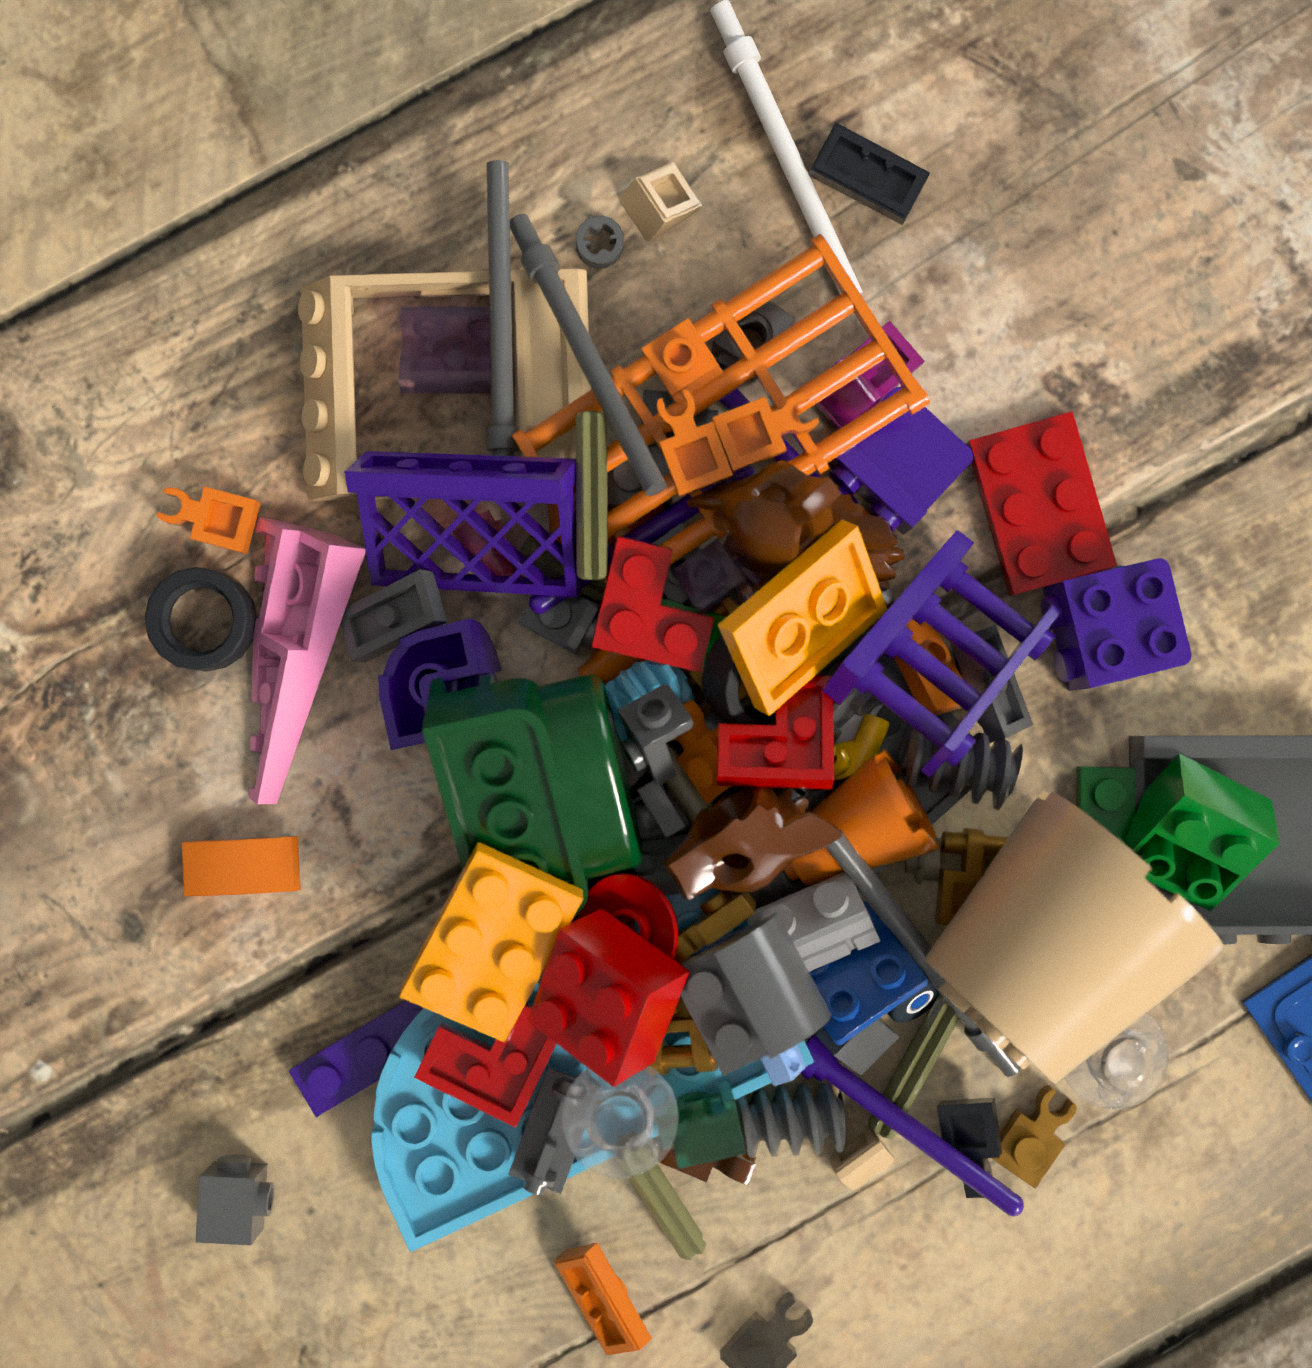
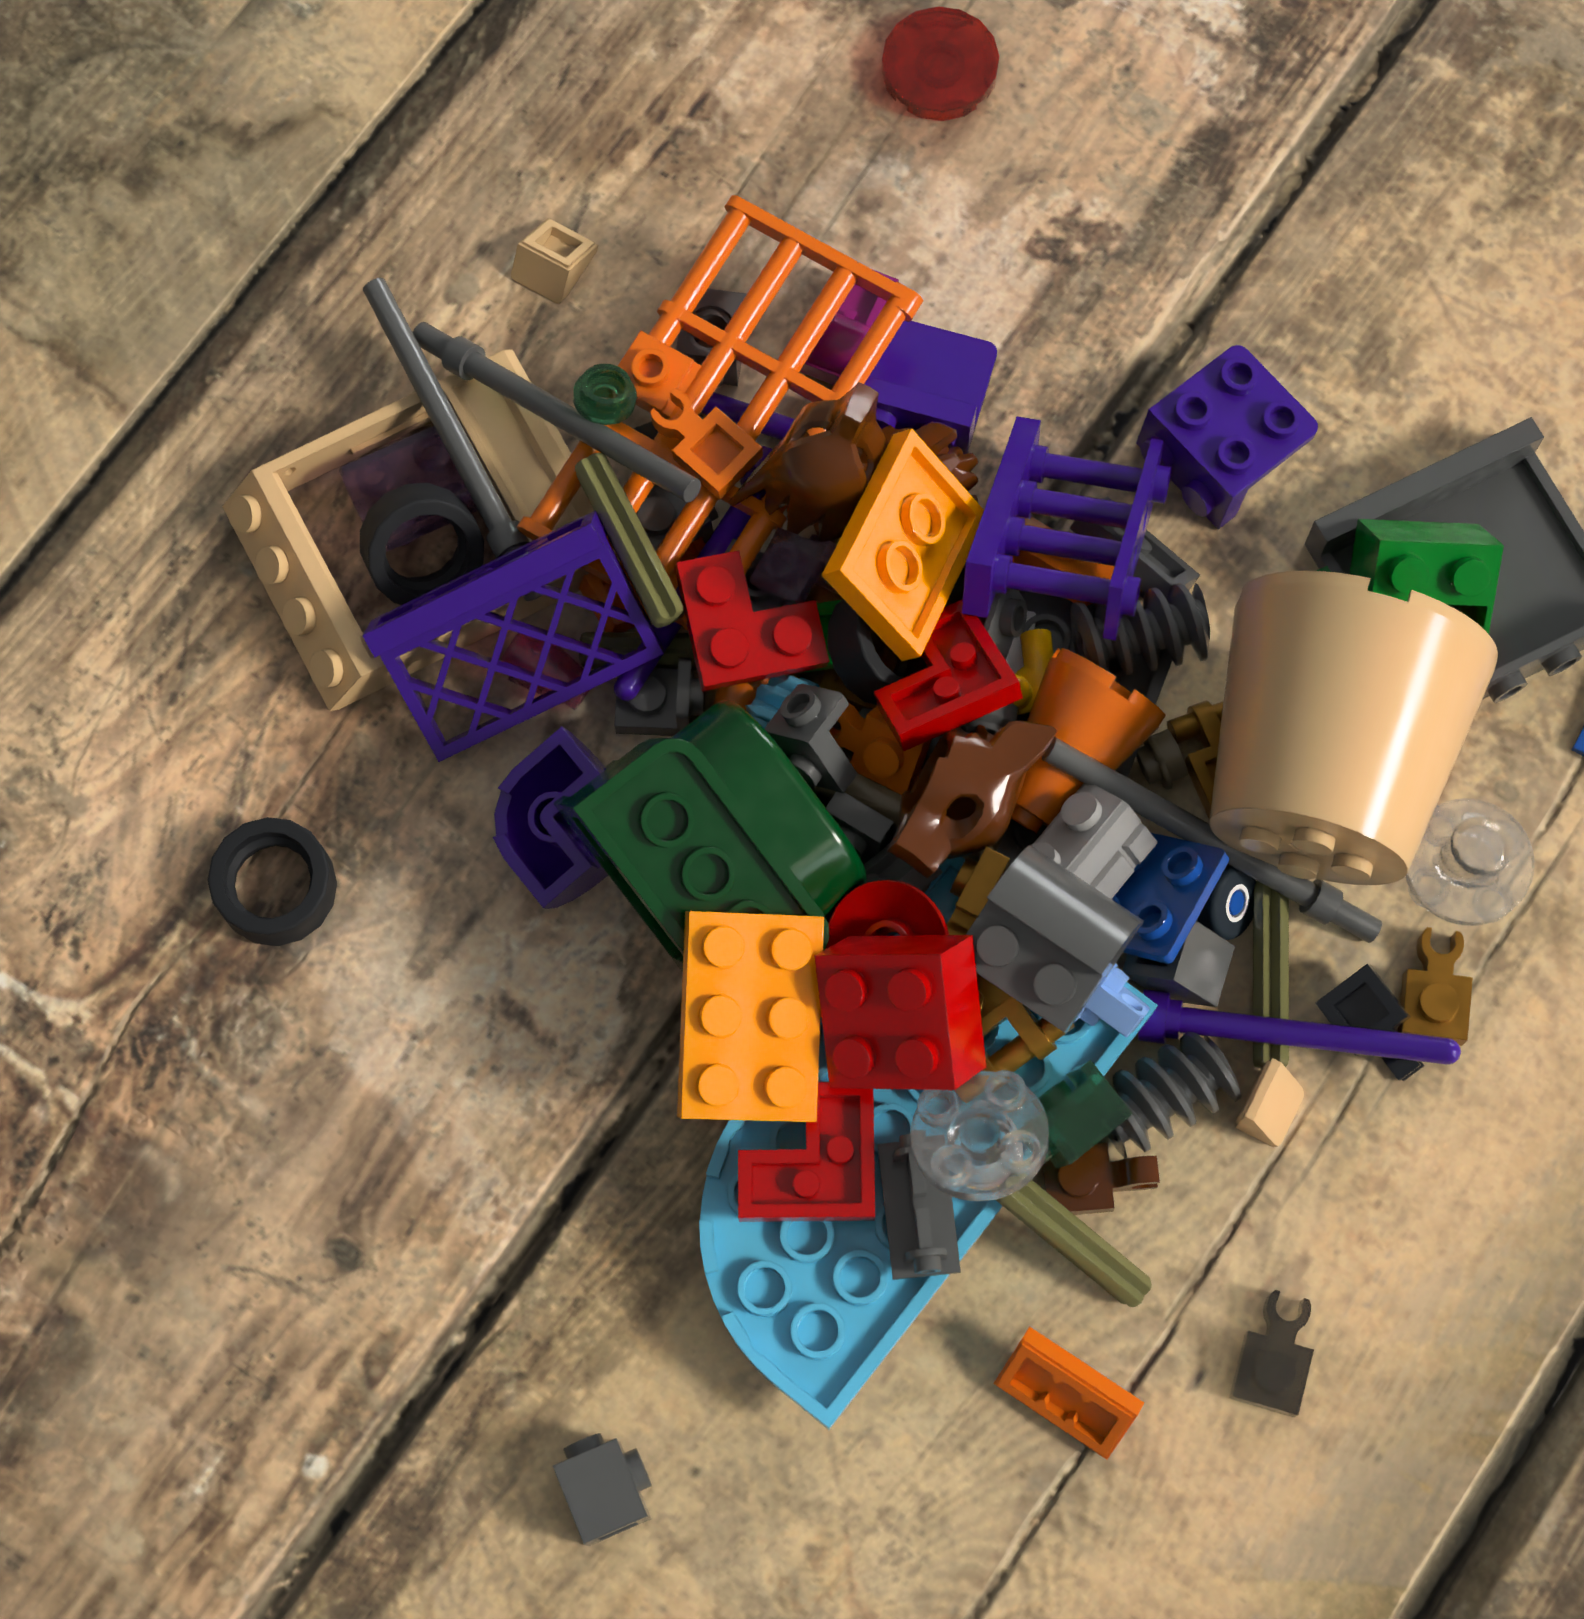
camera: 20 degrees left, 15 degrees down
(218, 518) = (244, 772): orange plate -> none
(241, 866) = (436, 1119): orange slope -> none
(303, 602) = (374, 816): bright pink wedge -> none
(352, 1060) = (663, 1269): dark purple plate -> none
(390, 614) = (468, 783): dark grey plate -> none
(440, 373) = (402, 506): none -> black tyre
(595, 226) = (498, 312): dark grey bush -> none
(638, 353) = (606, 382): none -> clear green plate
(743, 59) = (570, 93): white bar -> none
(754, 431) = (766, 399): orange plate -> none
(869, 173) = (749, 138): black plate -> none
(1041, 504) = (1086, 361): red plate -> none
(1058, 181) = (940, 63): none -> clear red tile

